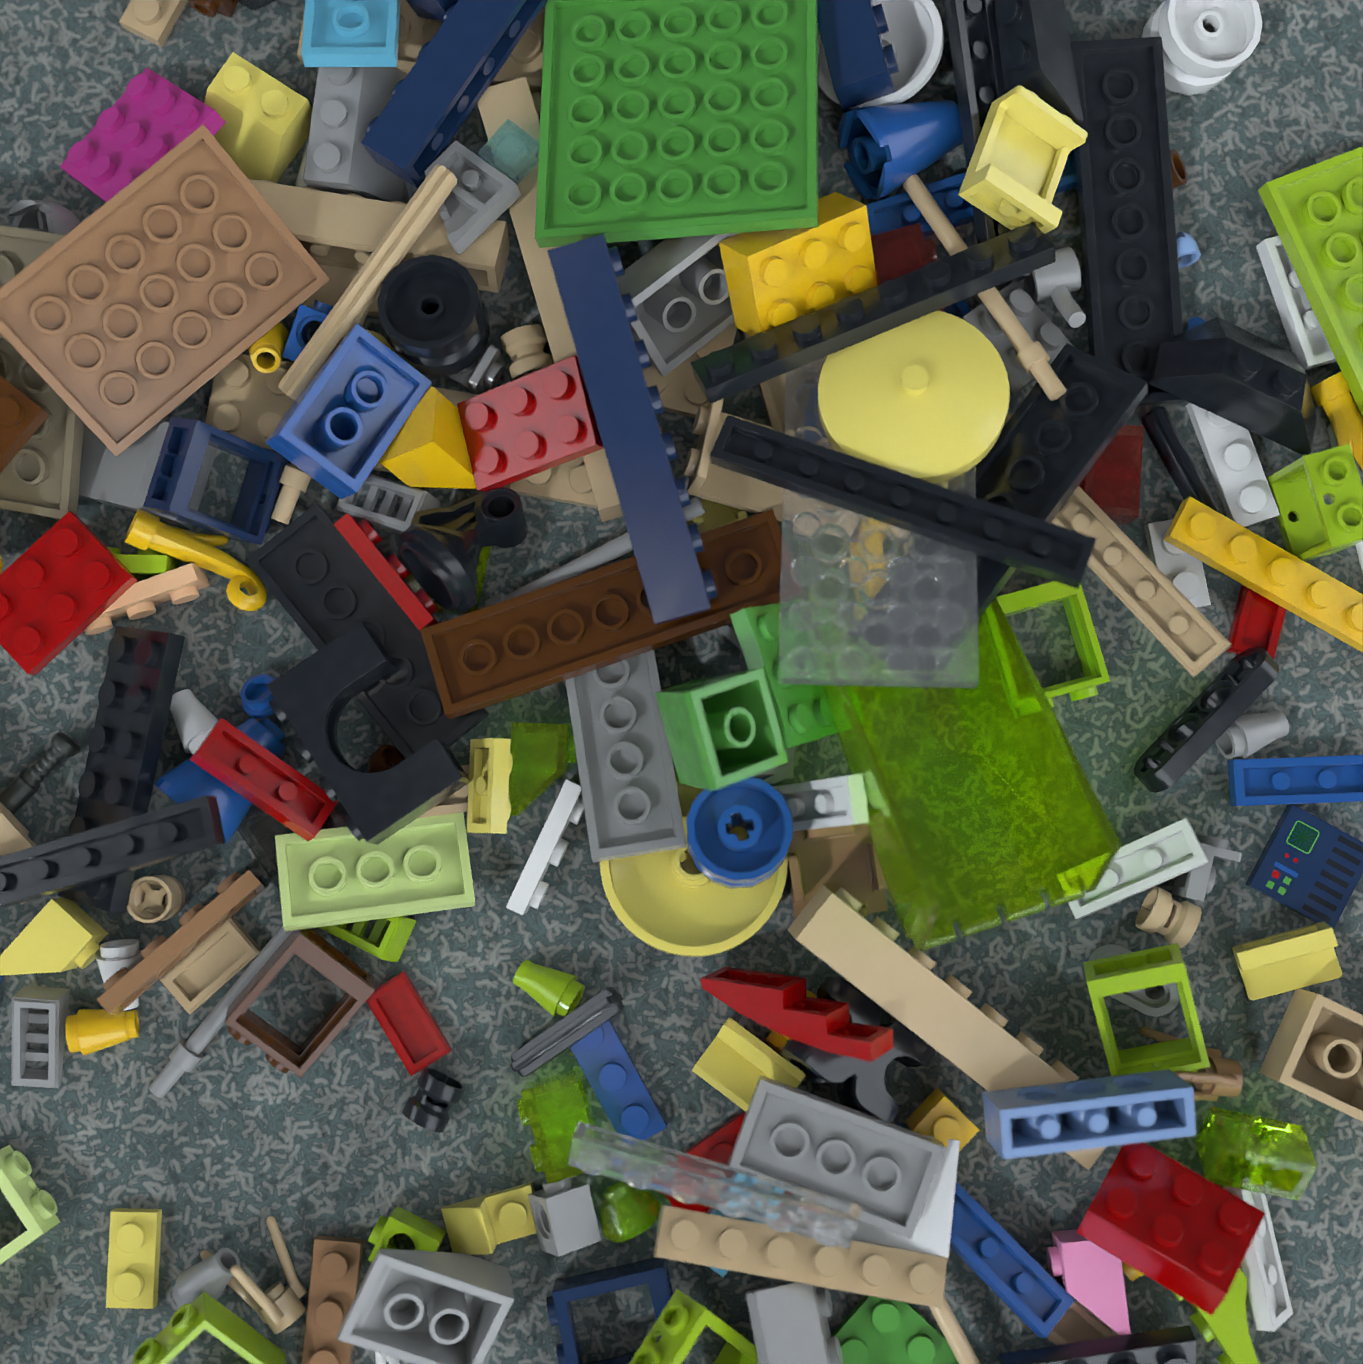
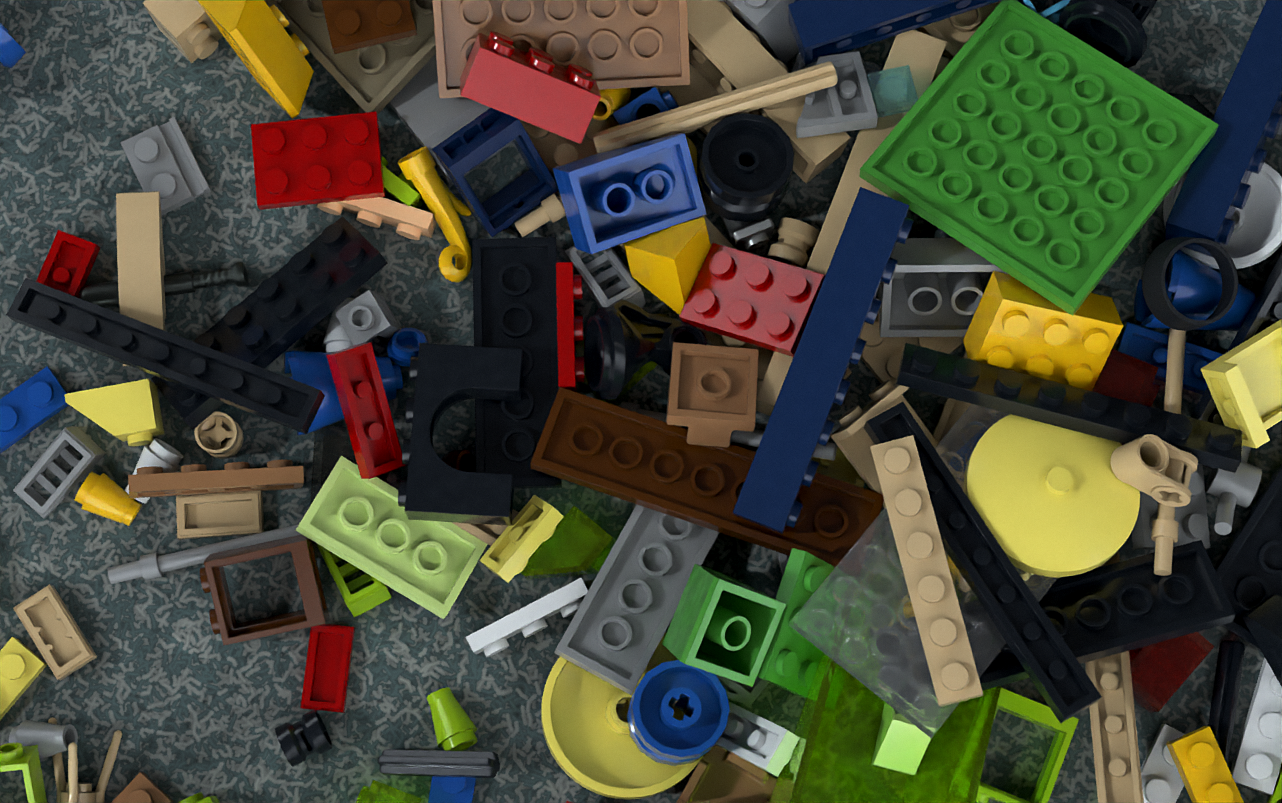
camera: 35 degrees right, 5 degrees down
(145, 1178) = (55, 632): none -> tan plate
(186, 383) = (530, 86): none -> red brick
(205, 697) = (367, 318): none -> light grey bracket
(556, 532) = (712, 391): none -> medium nougat panel
(863, 545) = (926, 571): none -> tan plate
(867, 148) = (1154, 283): none -> black tyre
(942, 711) = (899, 743): none -> yellowish green slope
(988, 308) = (1155, 469): none -> tan piece

